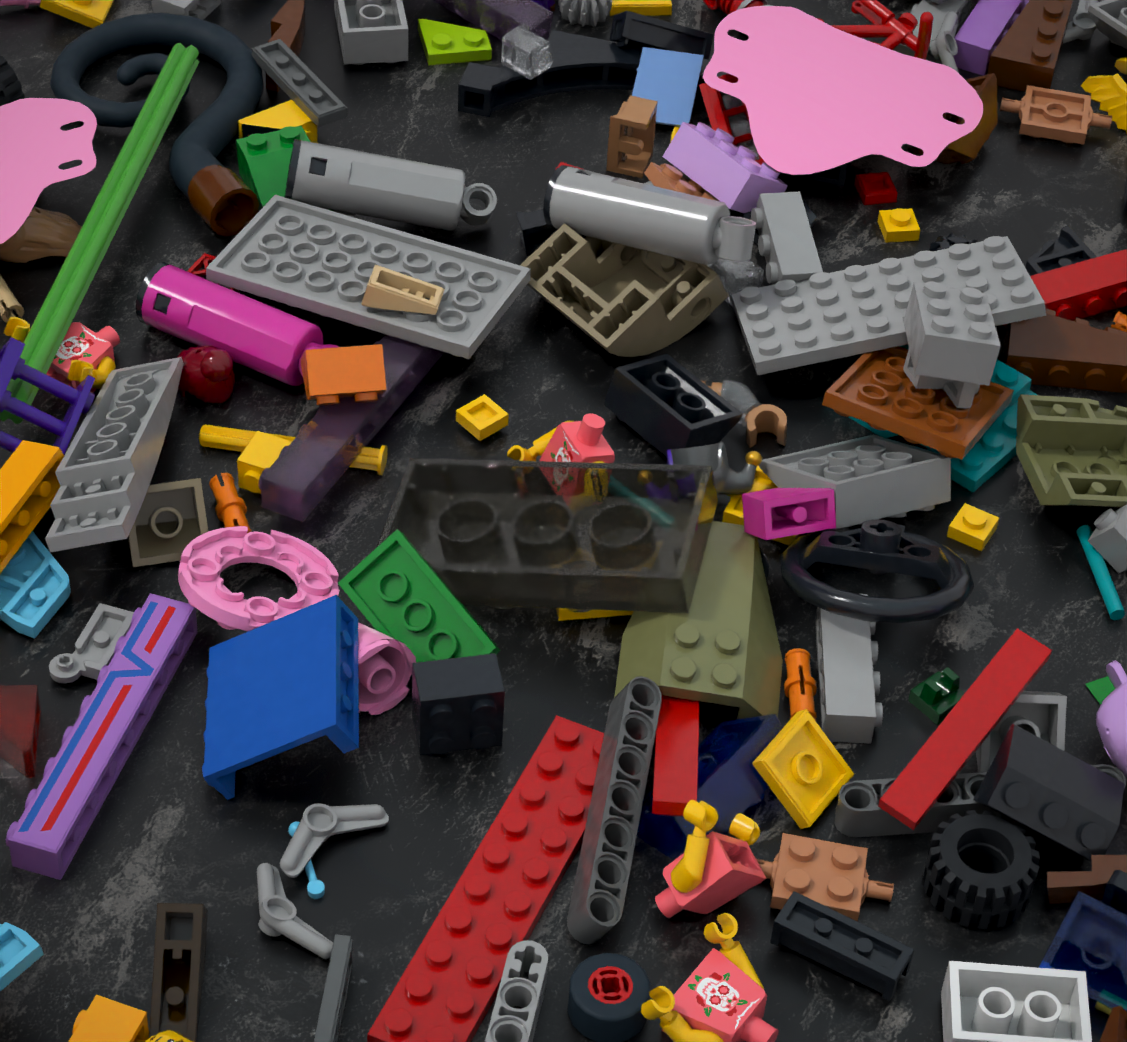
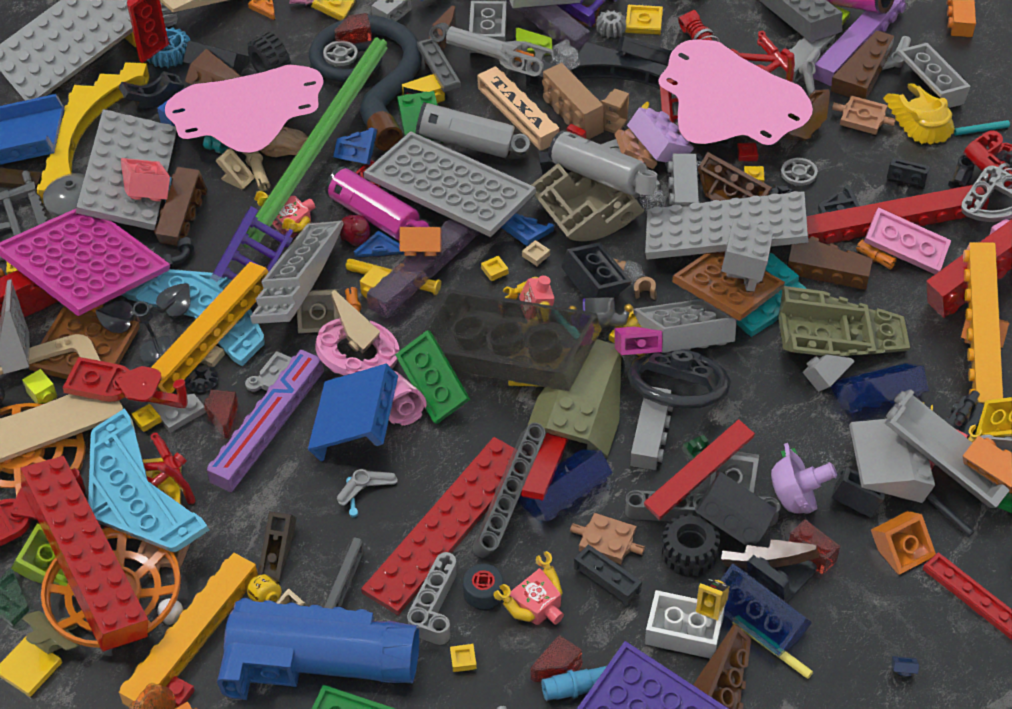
camera: 15 degrees right, 5 degrees up
(113, 76) = (340, 53): none -> light grey wheel
(132, 35) = (354, 29): none -> clear red slope
(176, 231) = (356, 147): none -> blue wing
(252, 540) = (356, 327): none -> tan slope
(256, 397) = (378, 245): none -> blue tile
(280, 917) = (331, 522): light grey piece -> none
(401, 292) = (456, 195): tan slope -> none
(417, 53) = (506, 52): none -> light grey piece
(456, 144) = (517, 107): none -> light nougat brick
(457, 704) = (441, 425): black brick -> none
(523, 346) = (526, 229): none -> blue wing
(551, 384) = (536, 253): none -> tan plate
(553, 121) = (572, 100): none -> medium nougat piece
(671, 81) = (642, 81): medium blue window -> none
(713, 865) = (549, 527): coral torso -> none
(800, 685) = (622, 448): orange pin -> none
(803, 769) = (612, 480): yellow tile -> none
(863, 235) = (724, 181): none -> reddish brown wedge
(973, 527) = (744, 357): yellow plate -> none
(974, 212) = (799, 171): none -> light grey wheel
(1067, 961) = (712, 598): none -> yellow slope
(1101, 575) = (807, 393): teal bar -> none

